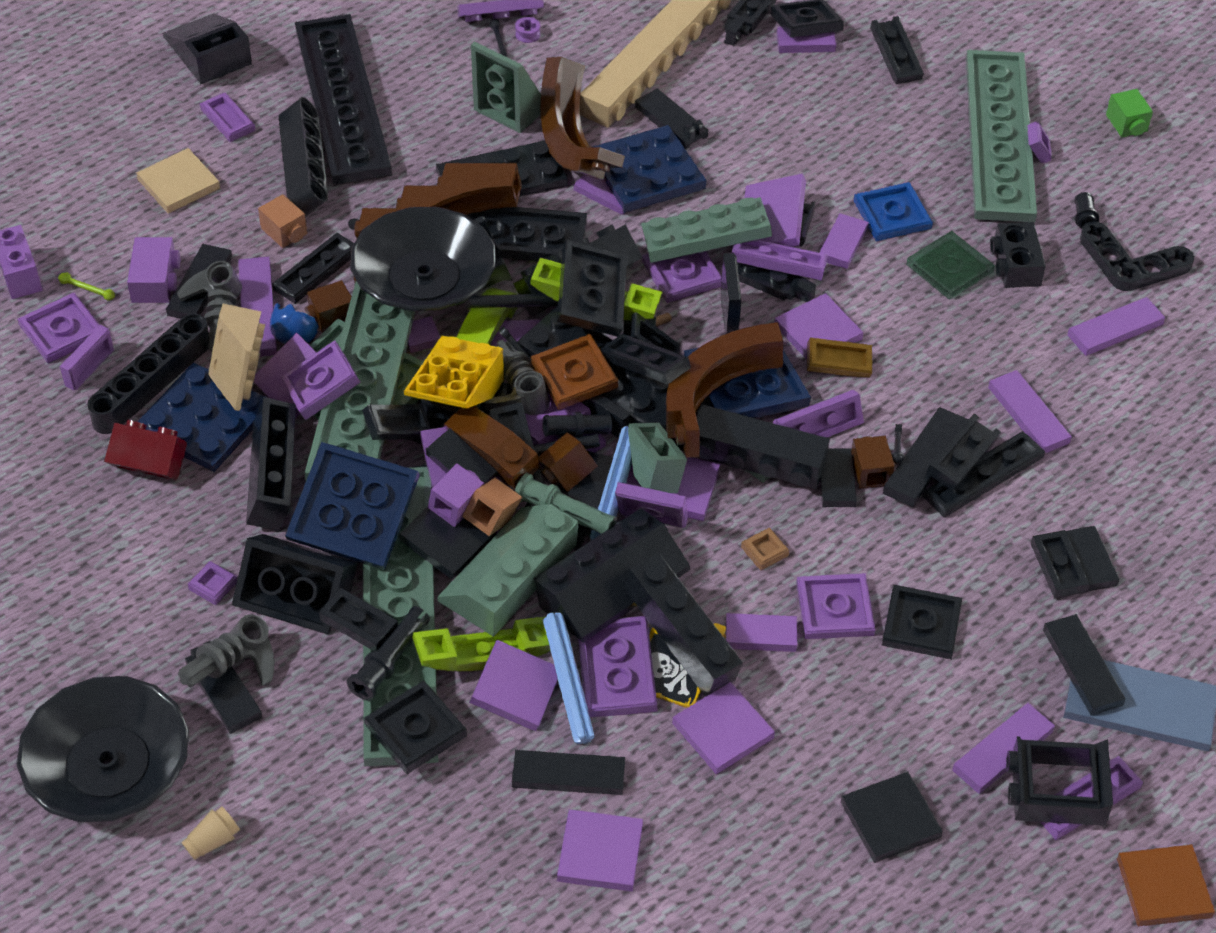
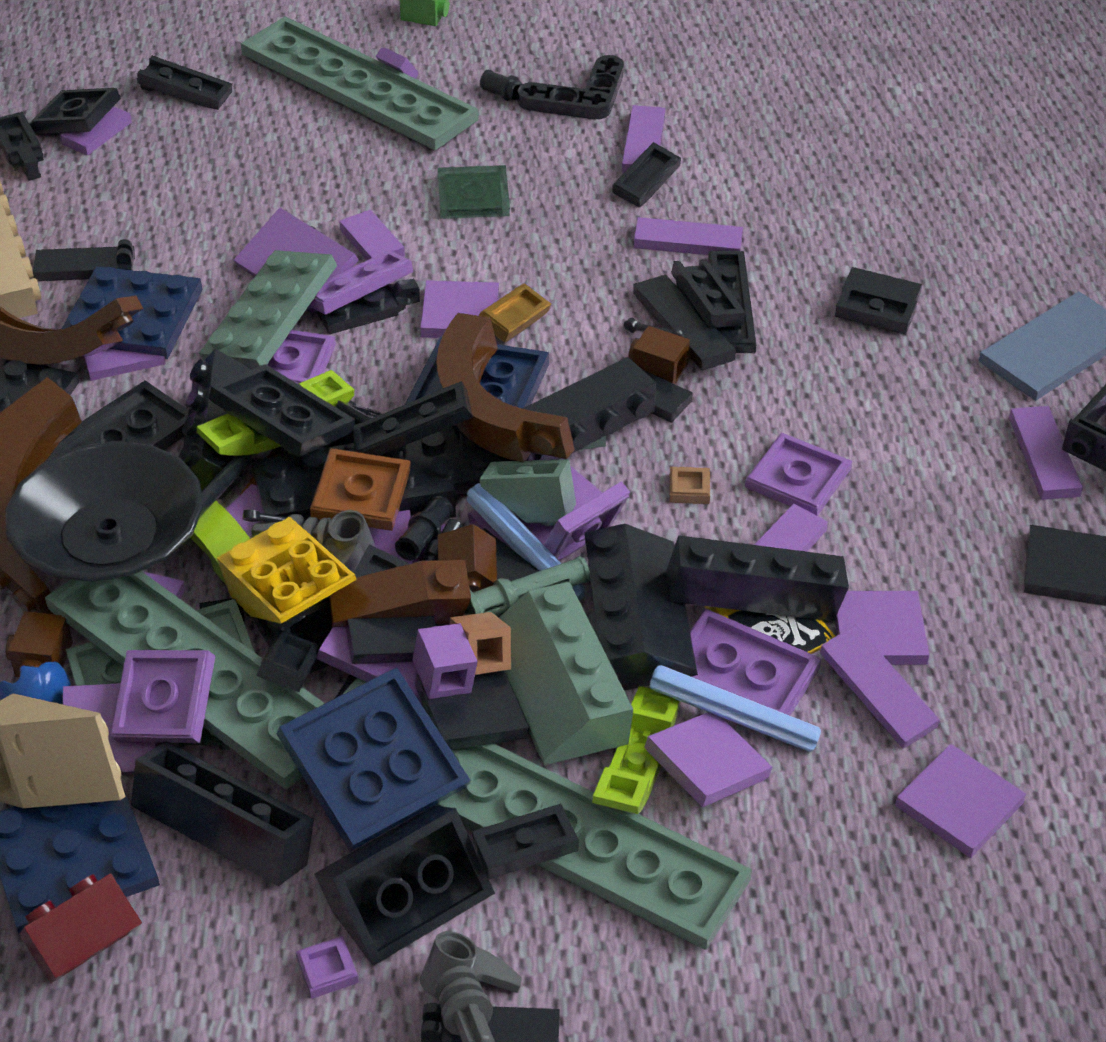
camera: 55 degrees left, 5 degrees down
(380, 663) = (601, 851): black pin -> none
(415, 727) = (705, 868): black tile -> none
(568, 772) = (845, 776): black tile -> none
(659, 751) = (879, 686): none -> medium lavender tile
(730, 293) = (378, 334): black tile -> none
(827, 416) = (579, 354): medium lavender hinge -> none
(893, 211) = (370, 188): blue tile -> none
(922, 622) = (864, 428): black tile -> none
(1018, 255) = (512, 143): black brick -> none
(1069, 348) = (646, 175): none -> black tile
(1084, 664) = (1001, 350): black tile -> none

